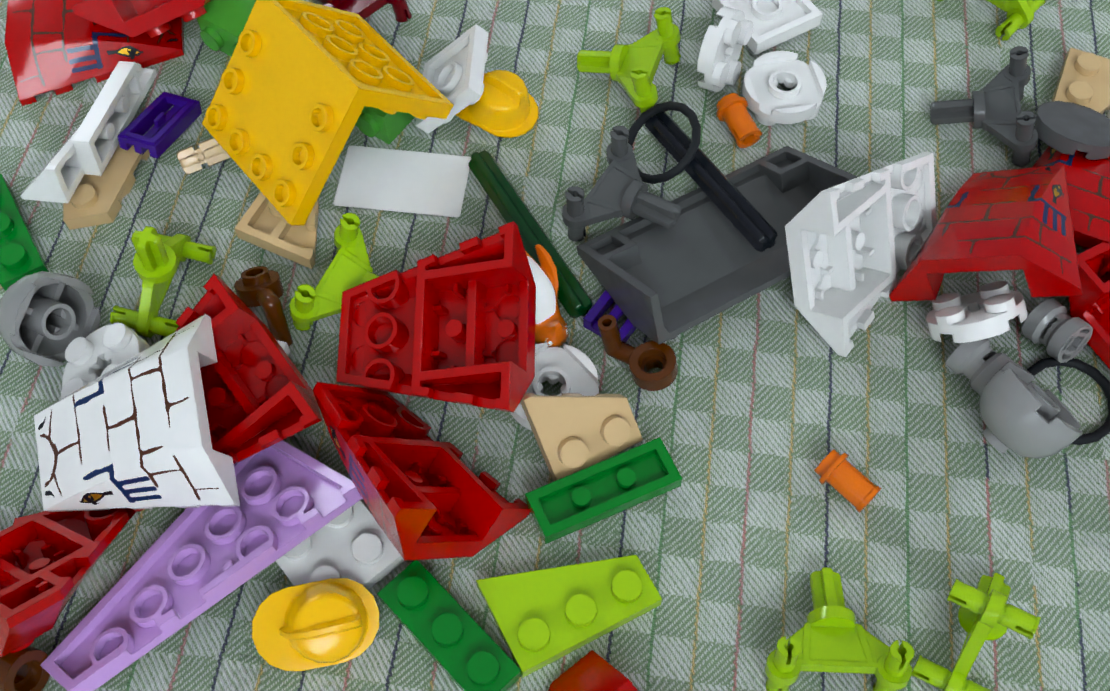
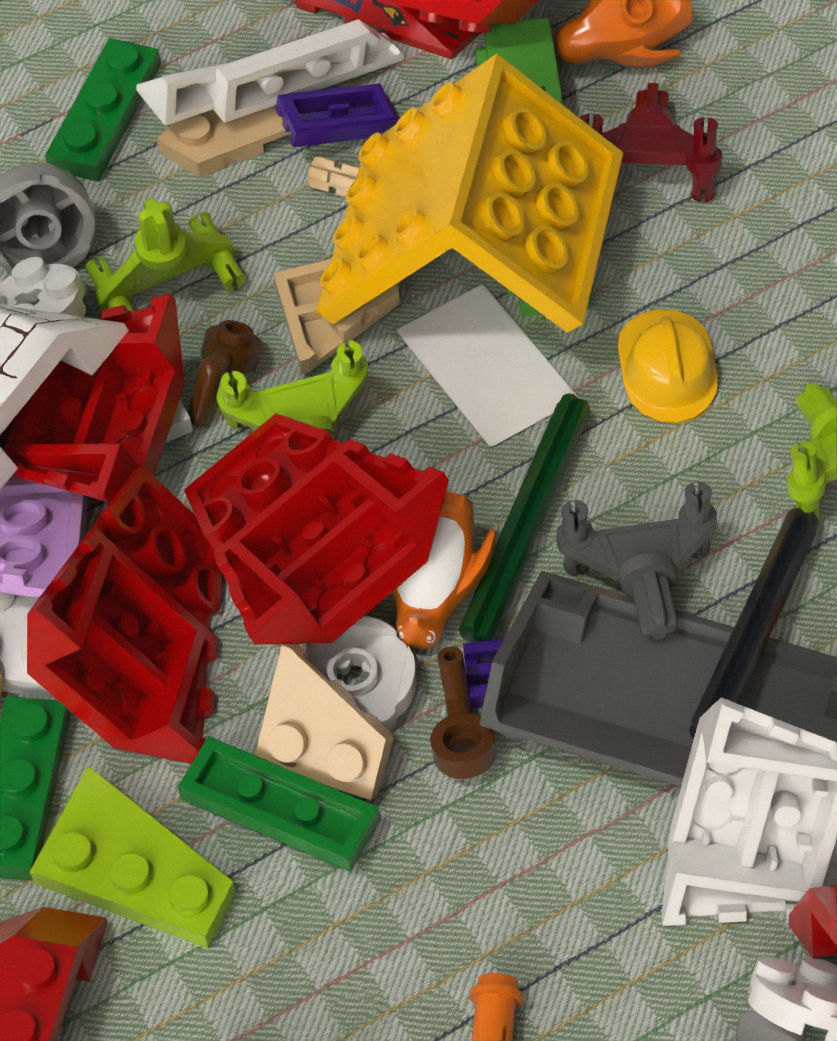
camera: 55 degrees right, 5 degrees down
(458, 74) = (630, 304): white plate -> none
(695, 140) = (778, 571): black piece -> none

